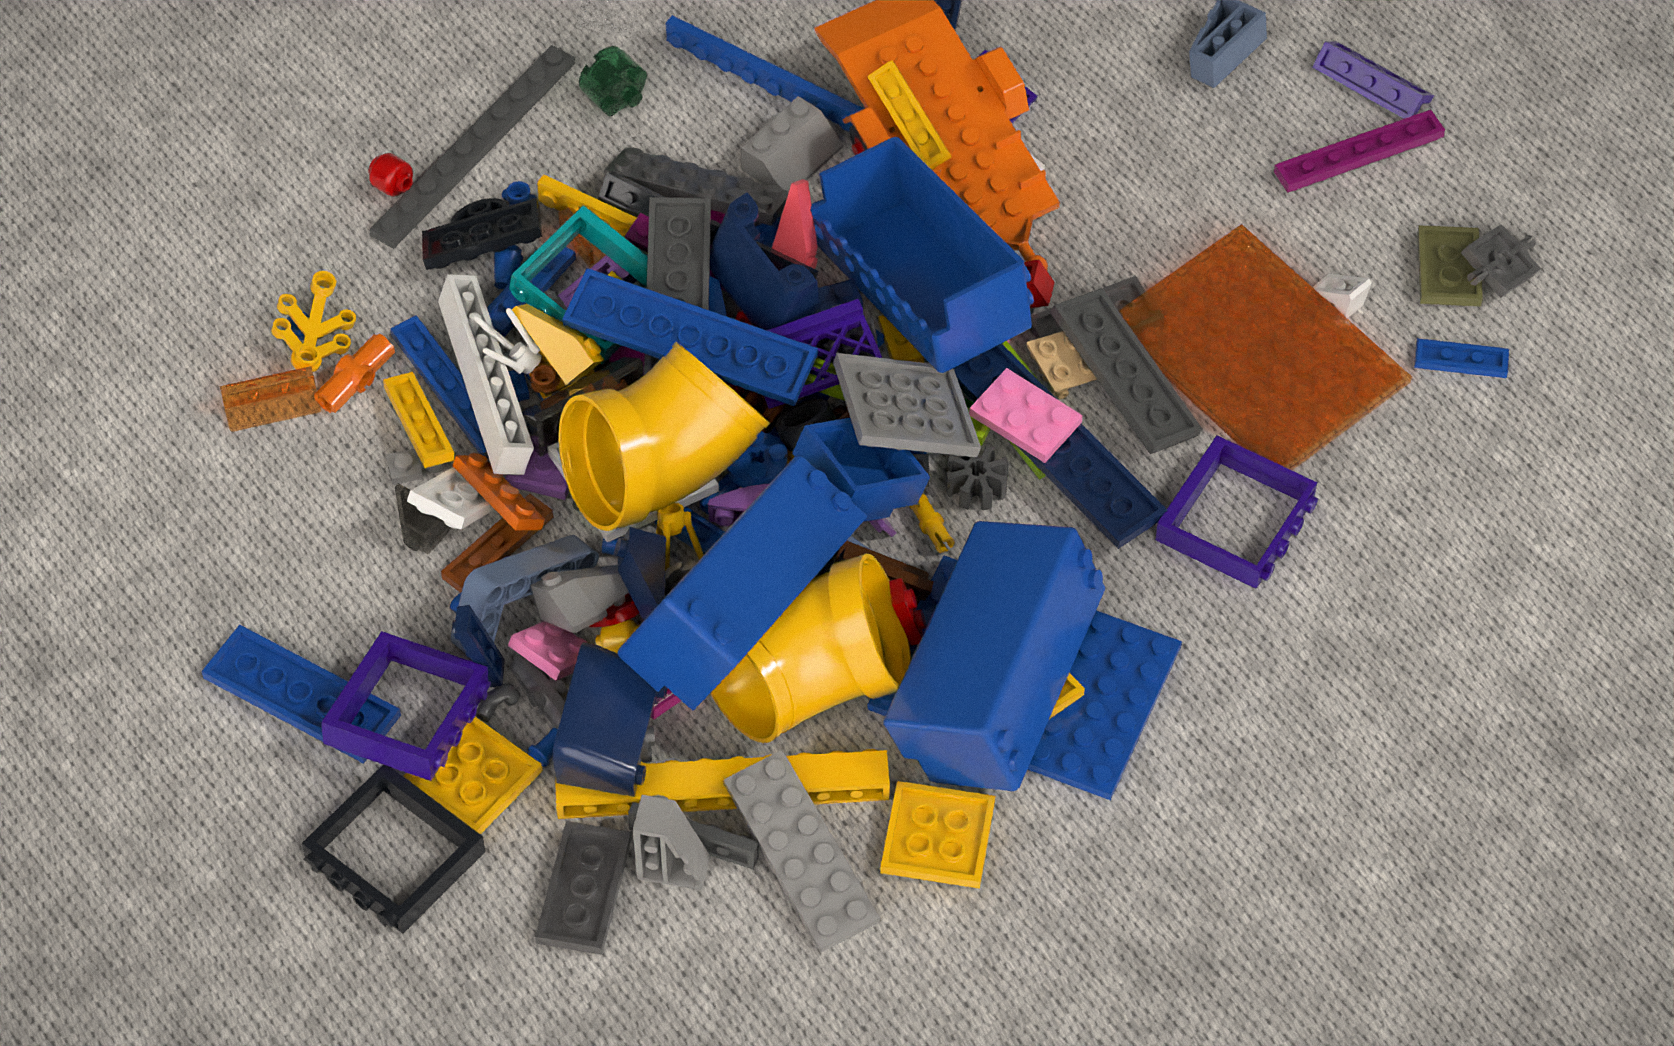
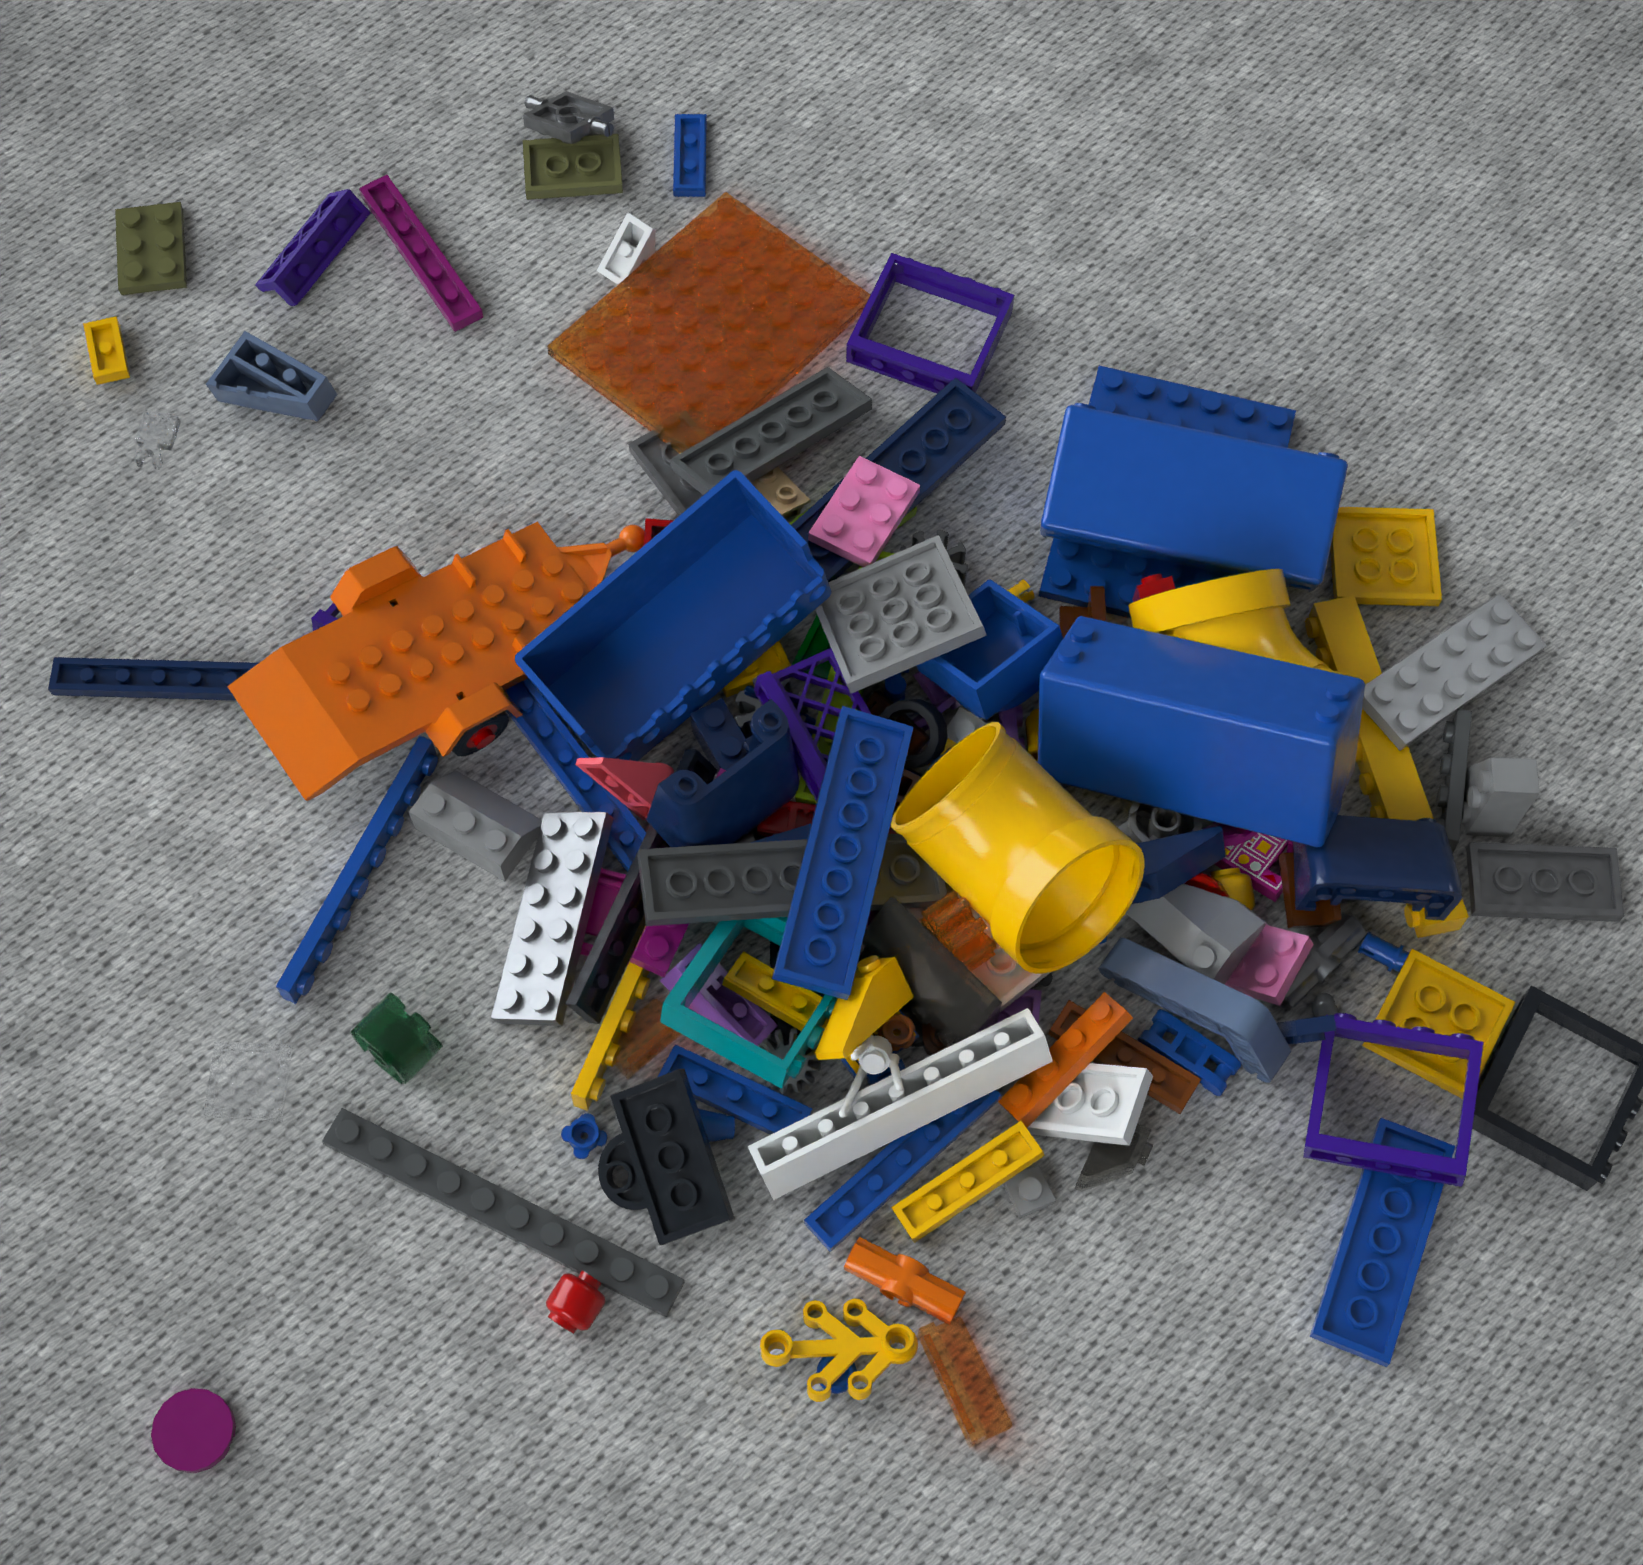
camera: 100 degrees left, 10 degrees up
(909, 115) = (450, 668): yellow plate -> none

